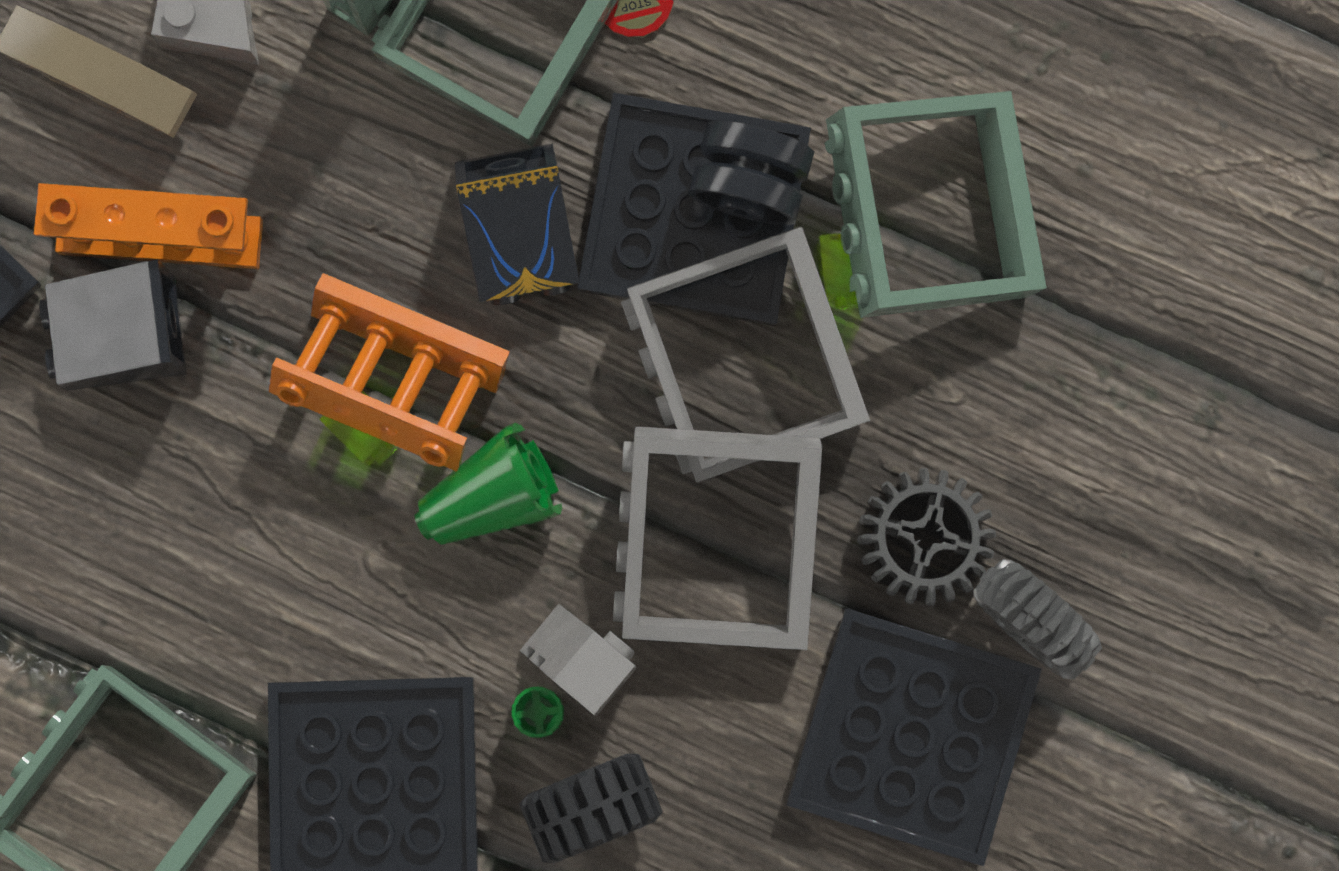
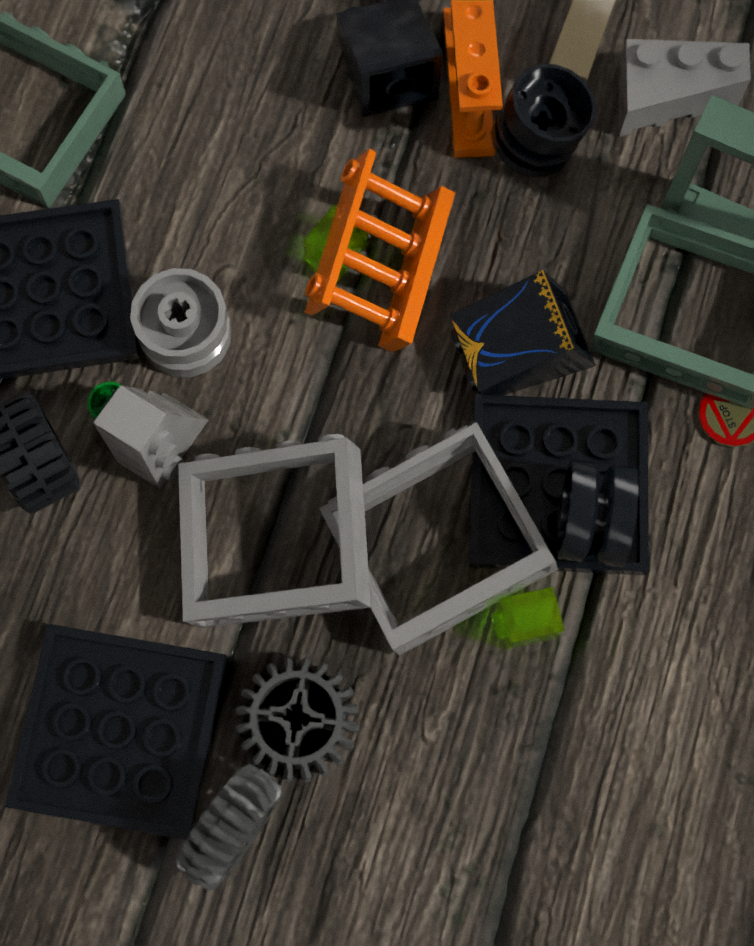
camera: 85 degrees right, 10 degrees down
(248, 132) = (543, 120): none -> black wheel
(414, 611) = (181, 322): none -> light grey wheel
(491, 492) = (295, 349): green cone -> none
(1006, 189) = (622, 755): sand green window -> none

